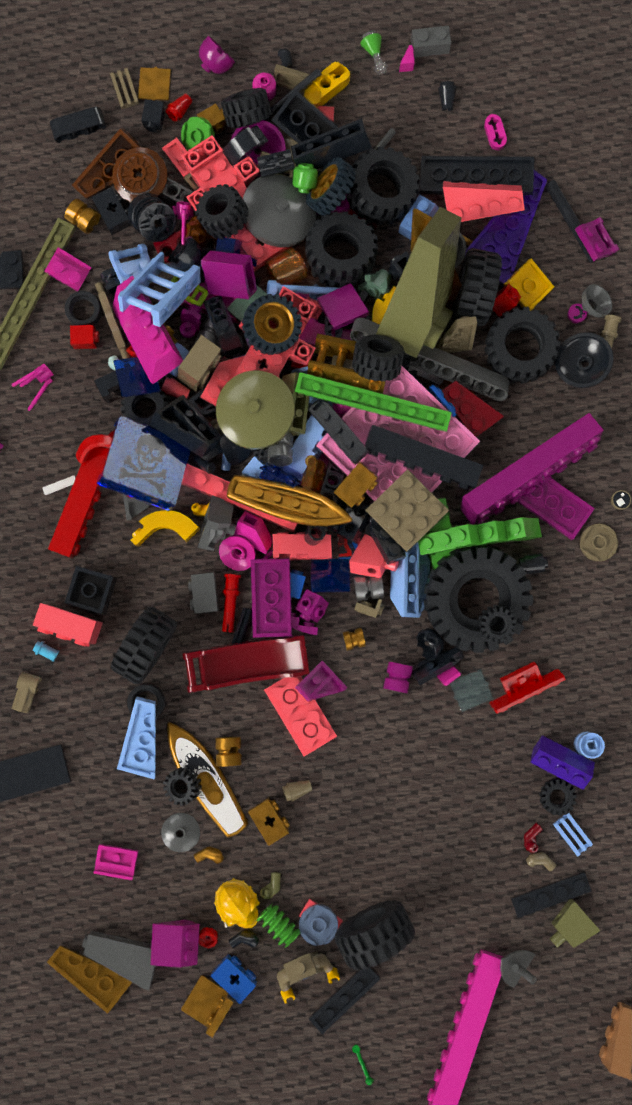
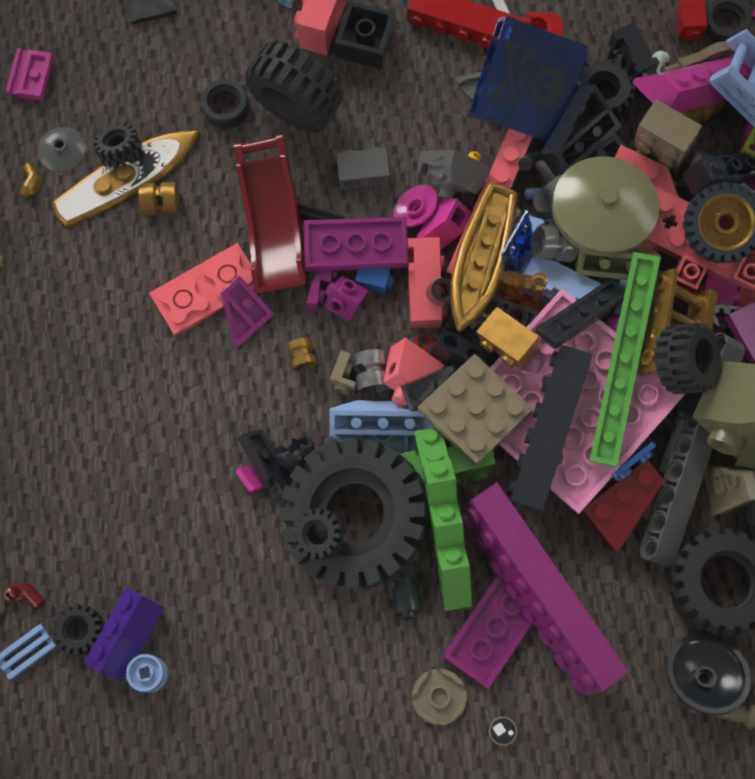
camera: 90 degrees right, 10 degrees down
(133, 378) = (638, 63): clear blue piece -> none
(139, 746) = (173, 94): light blue wing -> none
(165, 520) = (455, 109): yellow arch -> none
(173, 388) = (629, 127): coral cone -> none
(190, 321) = (722, 142): magenta hips -> none
(231, 592) = (364, 201): red pin -> none
(270, 832) = (54, 249): pearl gold brick -> none
(295, 790) = (106, 283): dark tan cone -> none
(330, 575) = (386, 320): clear blue piece -> none
(398, 677) = (249, 410): magenta wheel -> none
(471, 690) = (230, 512): clear light blue piece -> none
(523, 685) = (236, 584): red bracket -> none

